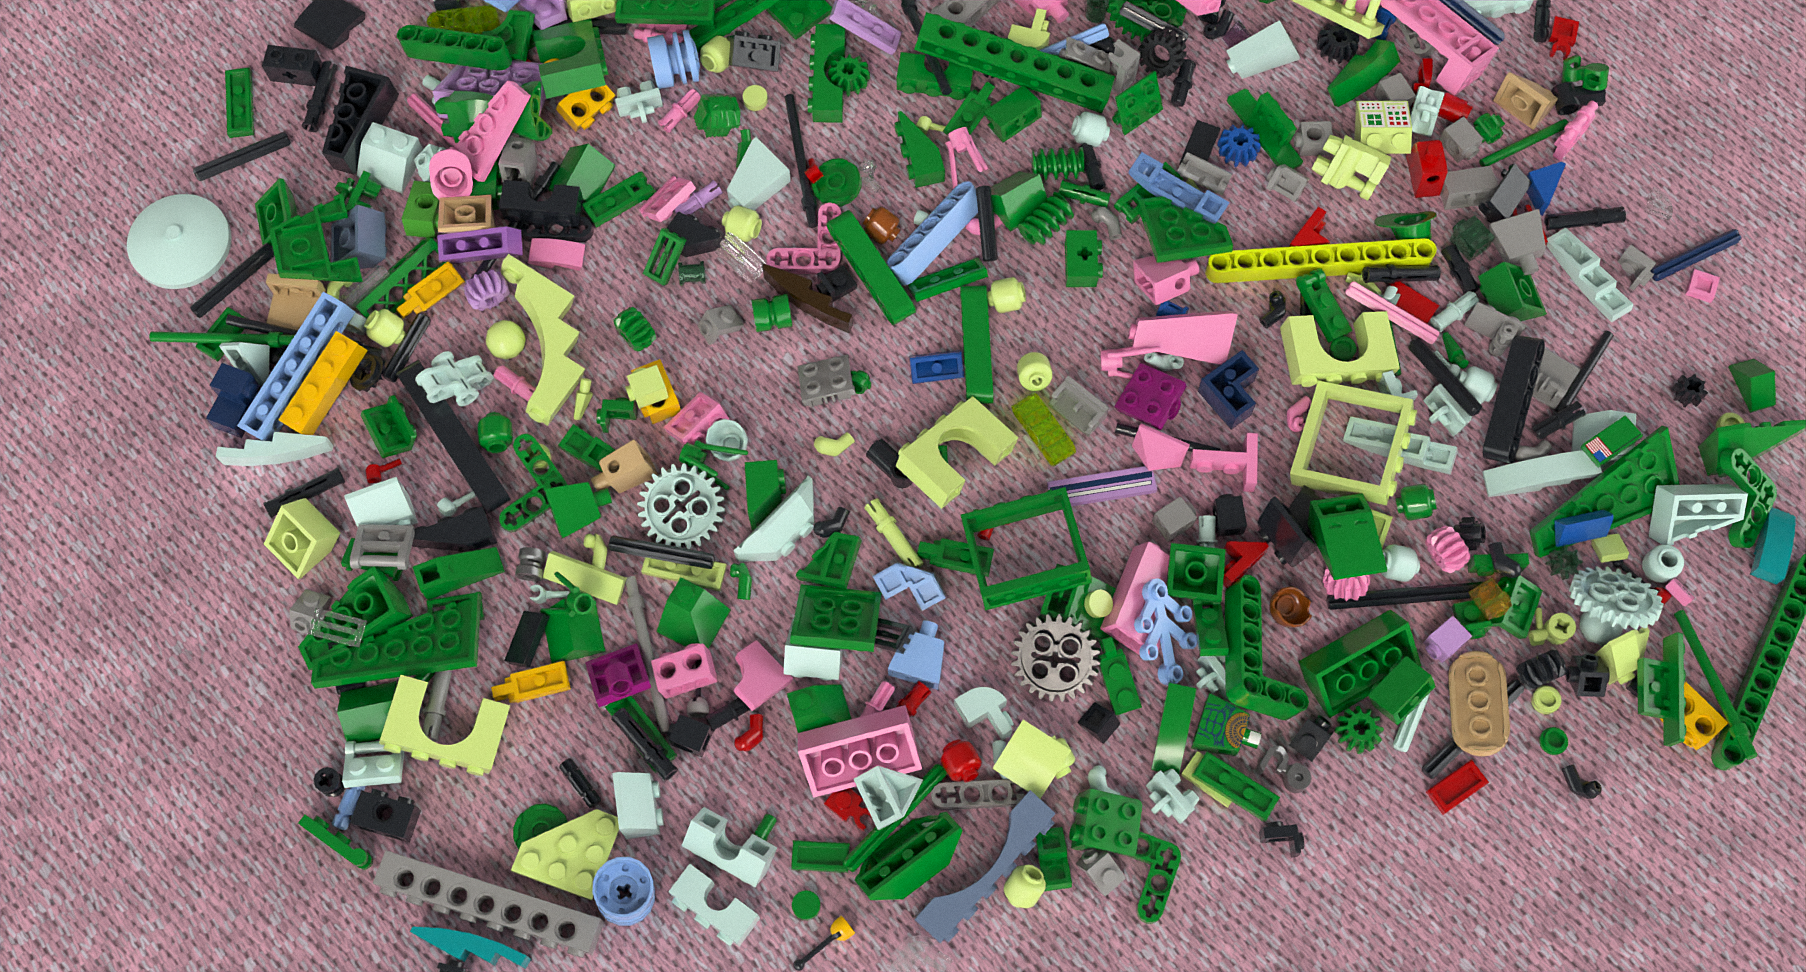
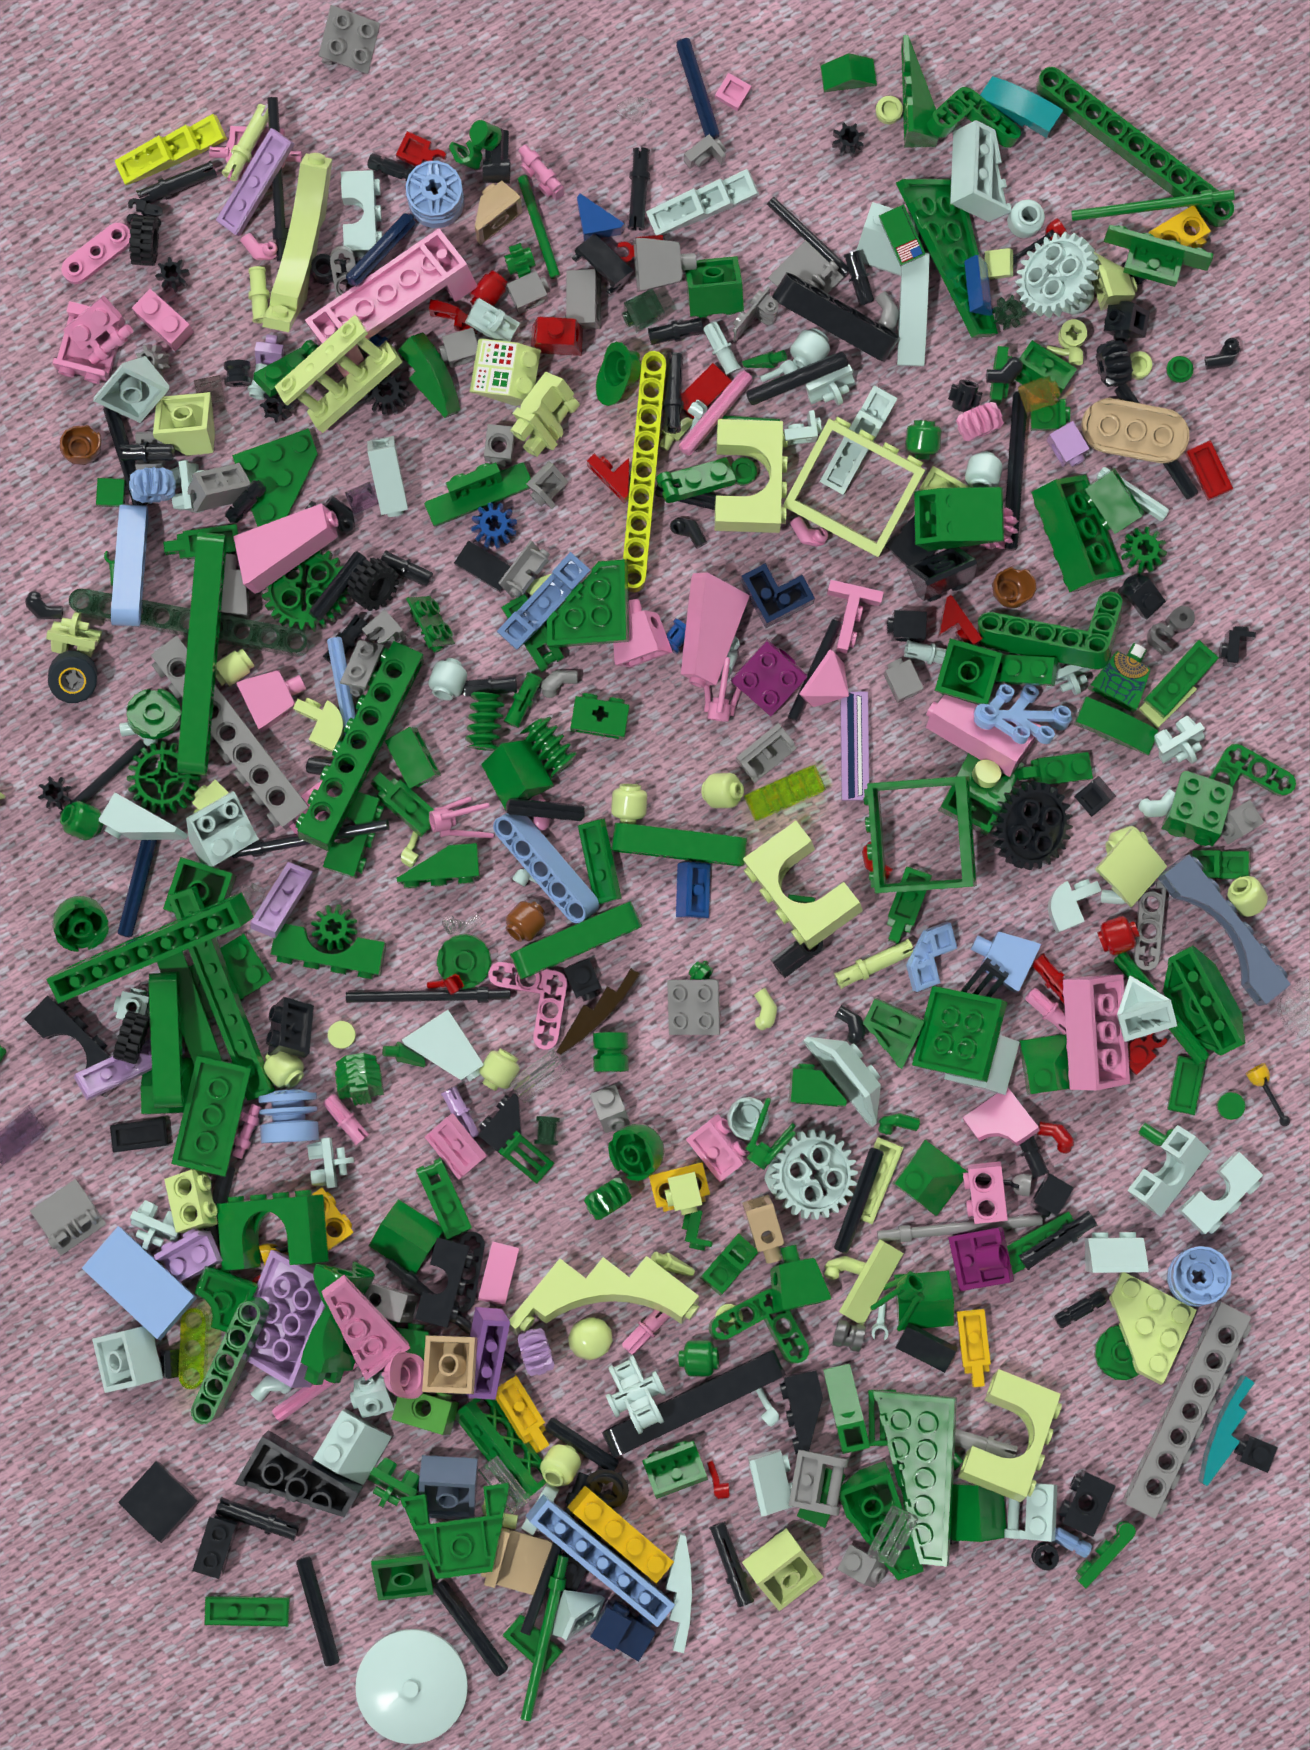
camera: 85 degrees left, 15 degrees up
(683, 347) = (636, 1151): none -> green cylinder
(1529, 47) = (437, 209): none -> light blue wheel
(1679, 592) = (1056, 209): bright pink tile -> none

